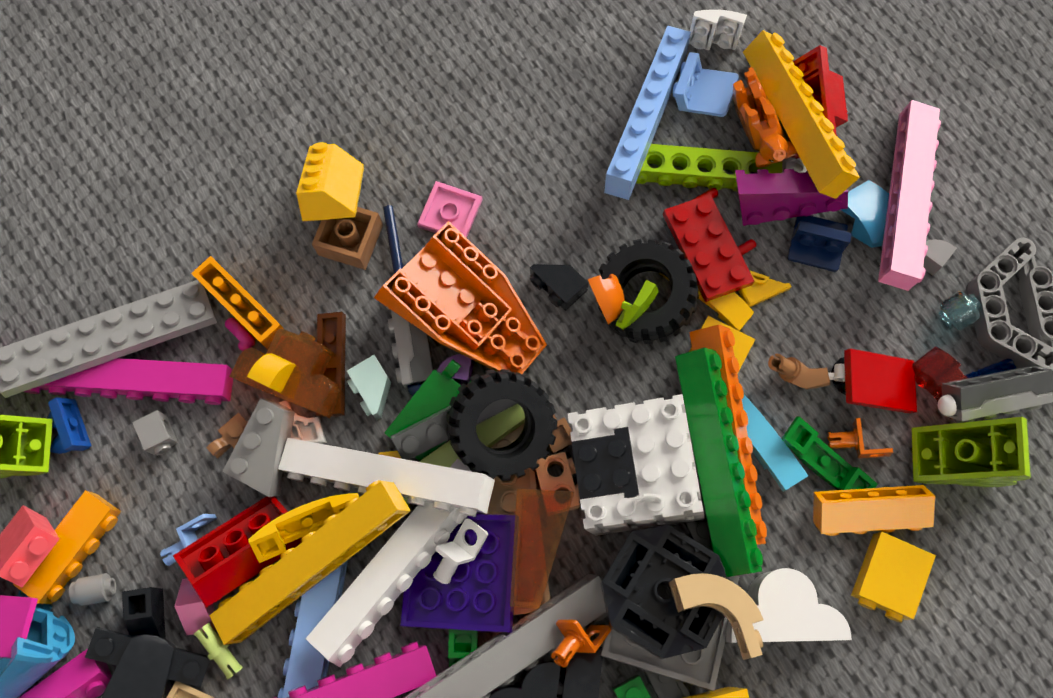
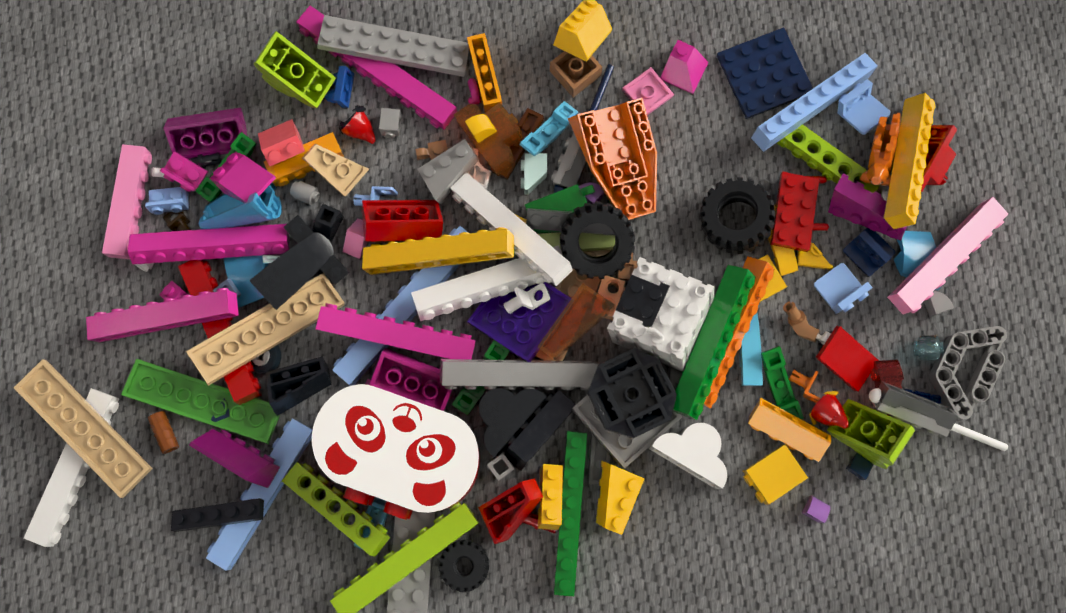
camera: 30 degrees right, 5 degrees up
(114, 536) = (335, 169): none -> tan wing
(116, 462) = (358, 126): none -> red hat
(218, 651) = (356, 270): yellowish green pin -> none
(295, 524) = (442, 225): yellow slope -> none
(360, 325) = (549, 130): none -> medium azure slope
(474, 159) = (684, 67): none -> dark pink slope
(560, 282) = (688, 177): black slope -> none
(569, 113) = (764, 73): none -> dark blue plate
(577, 640) = (563, 389): orange bracket -> none
(608, 295) = (710, 203): orange brick -> none
(641, 304) = (728, 219): lime slope -> none
(716, 27) = (897, 72): white slope -> none
(727, 598) = (663, 415): tan arch -> none
(818, 304) = (841, 288): none -> light blue bracket
(905, 457) = (829, 411): none -> red hat
(969, 587) = (816, 509): none -> medium lavender brick
(980, 500) = (860, 466): none -> dark blue slope

